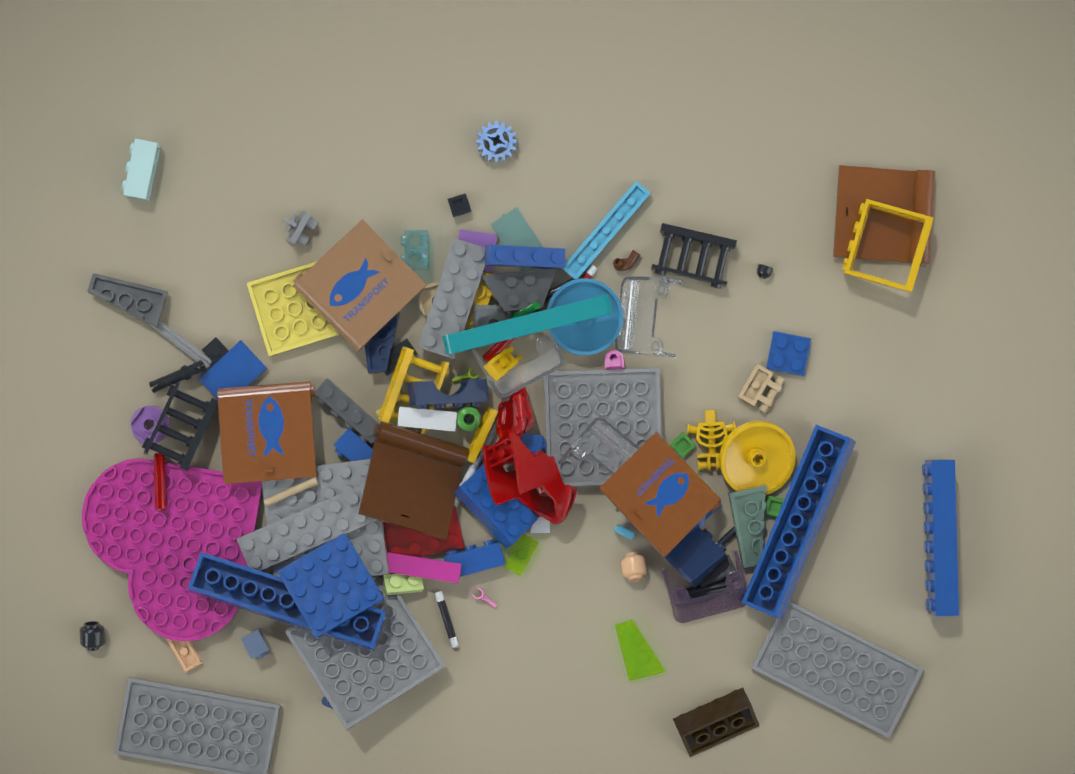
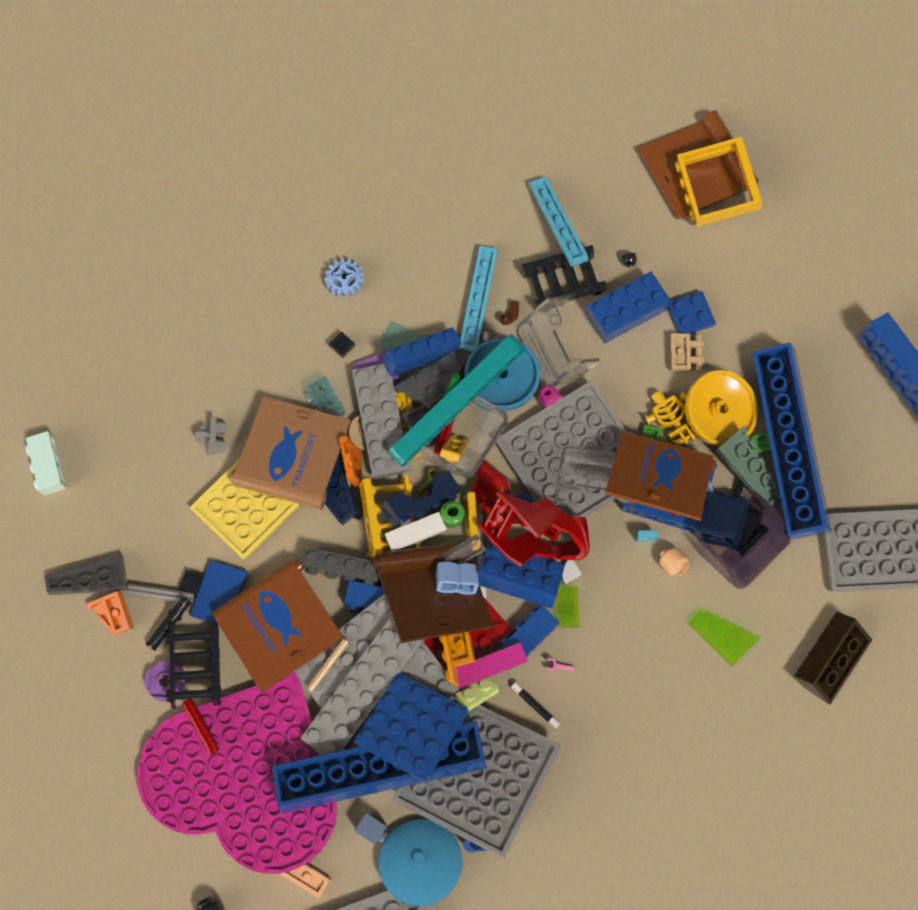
camera: 30 degrees left, 15 degrees down
(134, 339) = (112, 612): none -> orange wing
(280, 692) = (420, 863): none -> dark azure dish
(404, 543) = (457, 652): none -> light orange bracket
(409, 320) = (352, 460): none -> orange wing
(439, 480) = (457, 578): none -> light blue brick
(453, 460) = (465, 550): none -> clear tile
(720, 199) = (558, 221): none -> medium azure plate
(734, 316) = (628, 307): none -> blue brick

